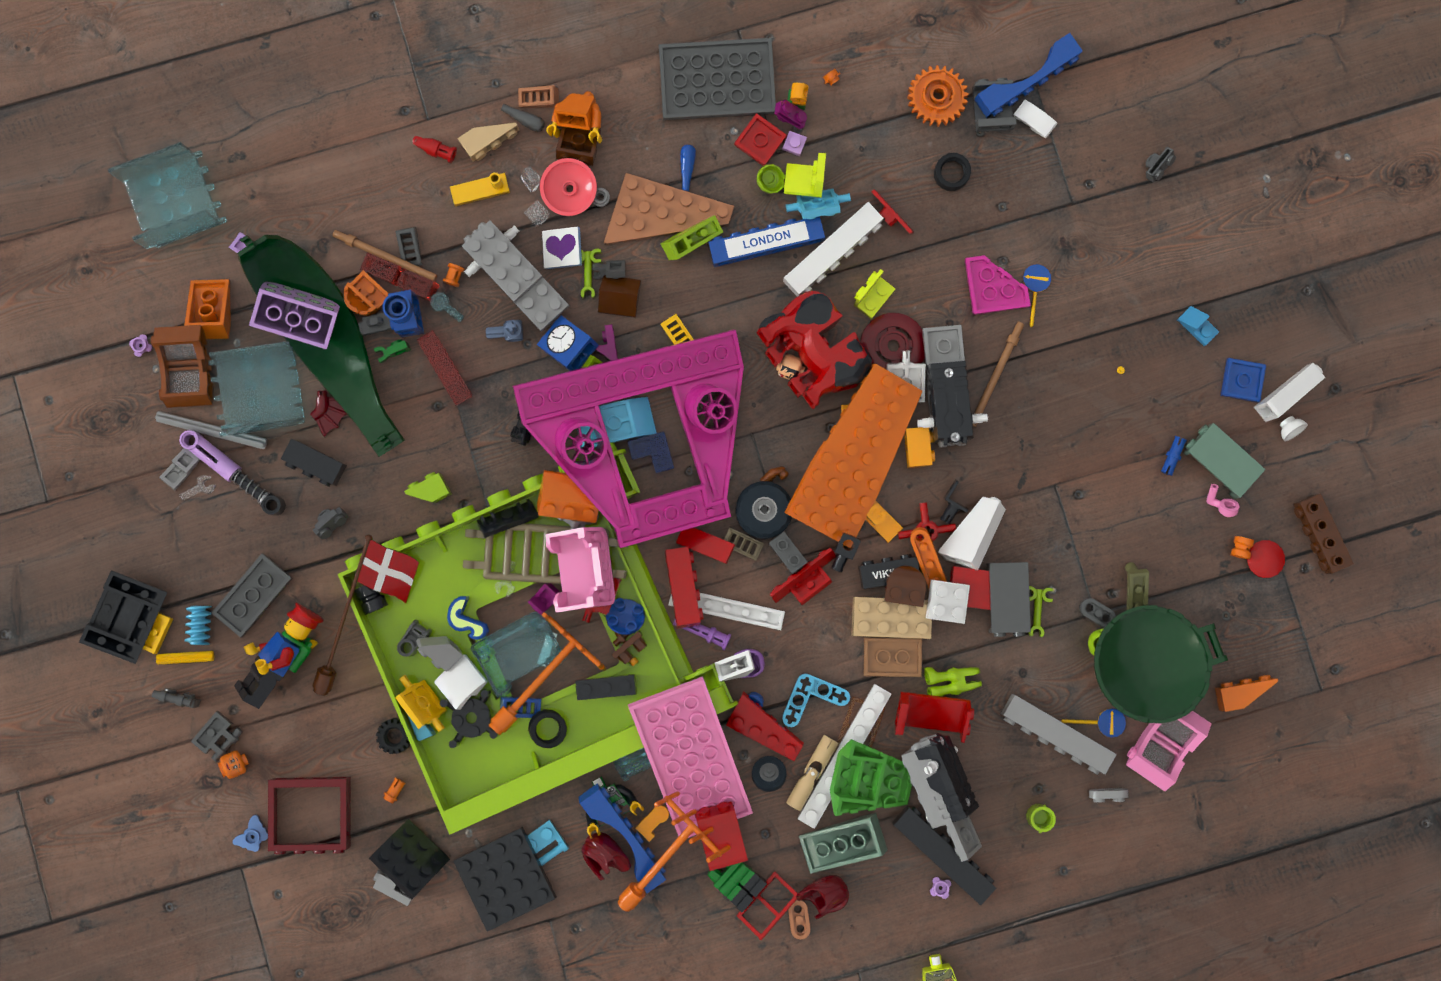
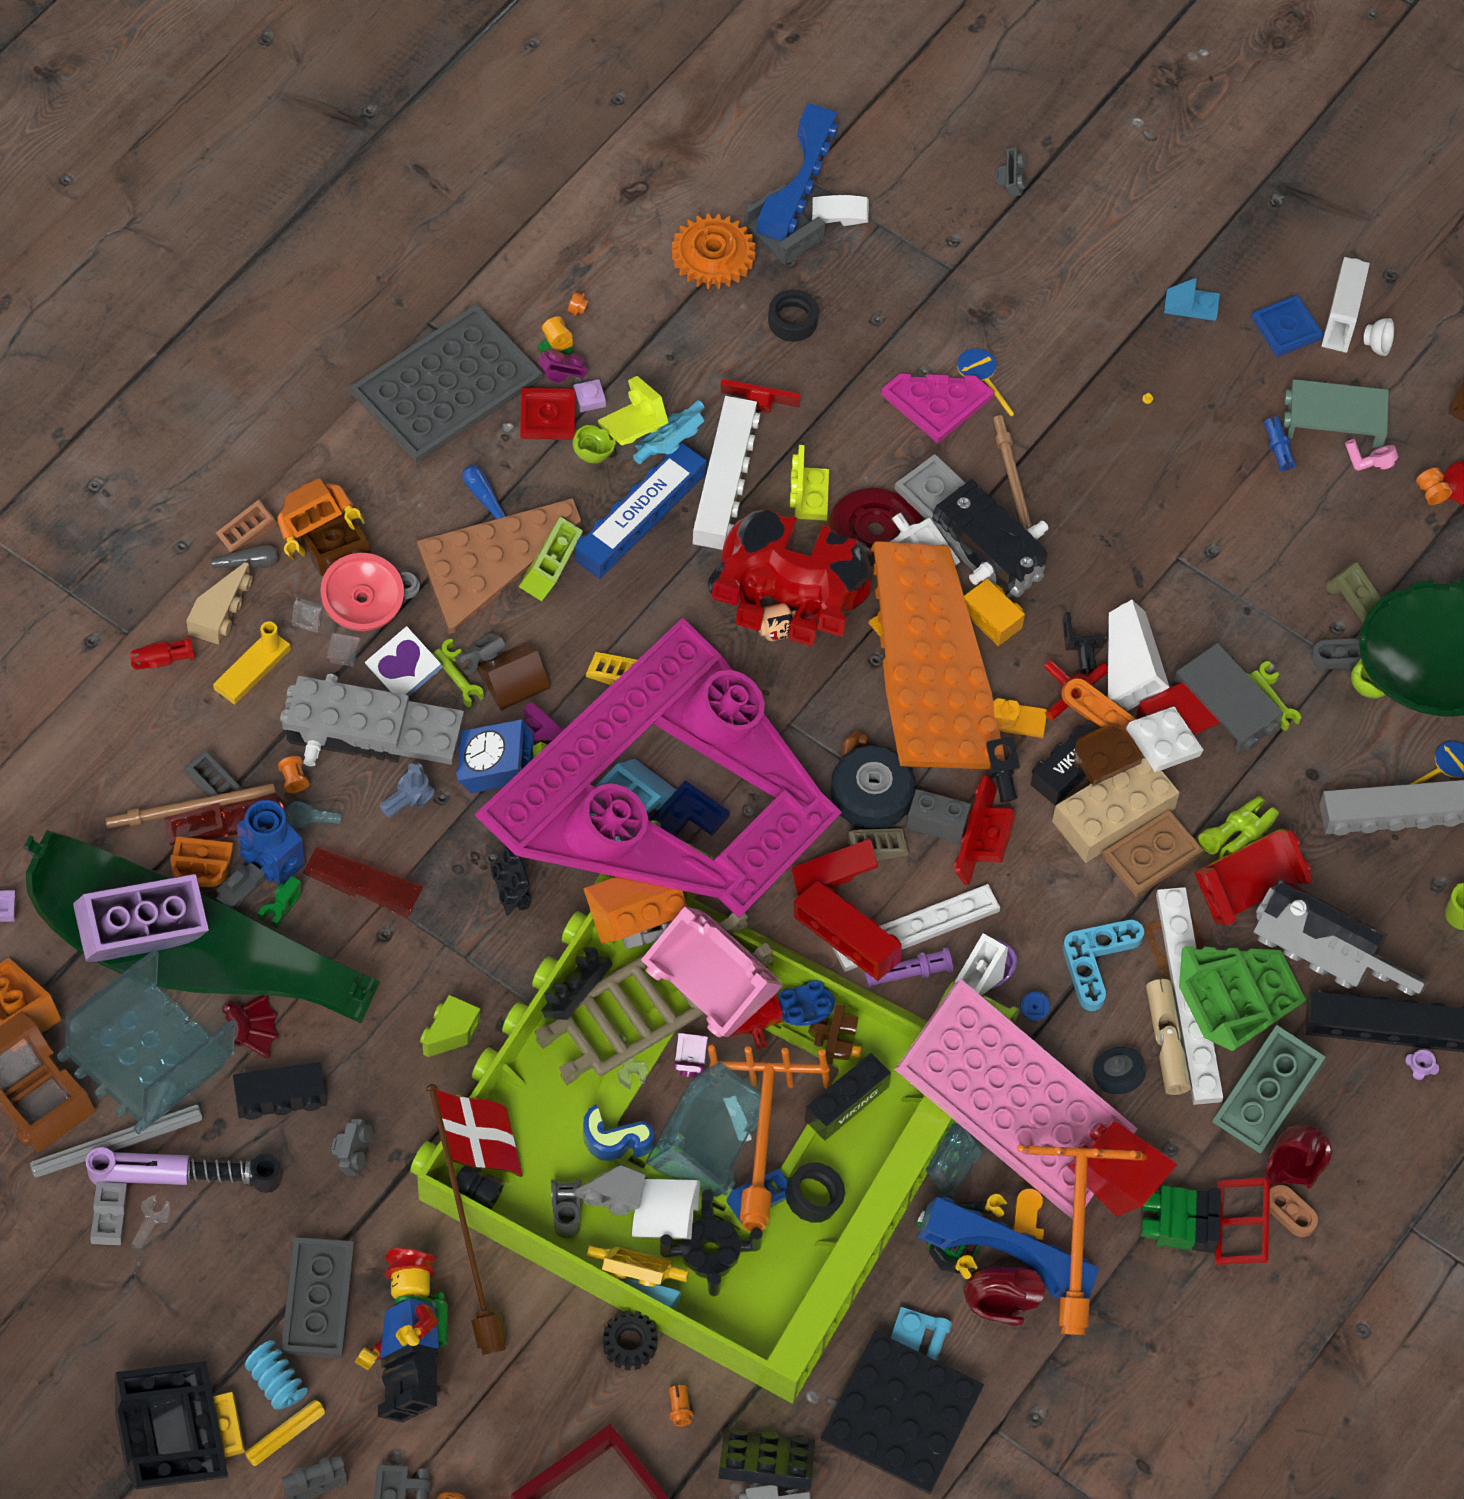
camera: 40 degrees left, 25 degrees down
(763, 728) = (1072, 1025): red wing -> none

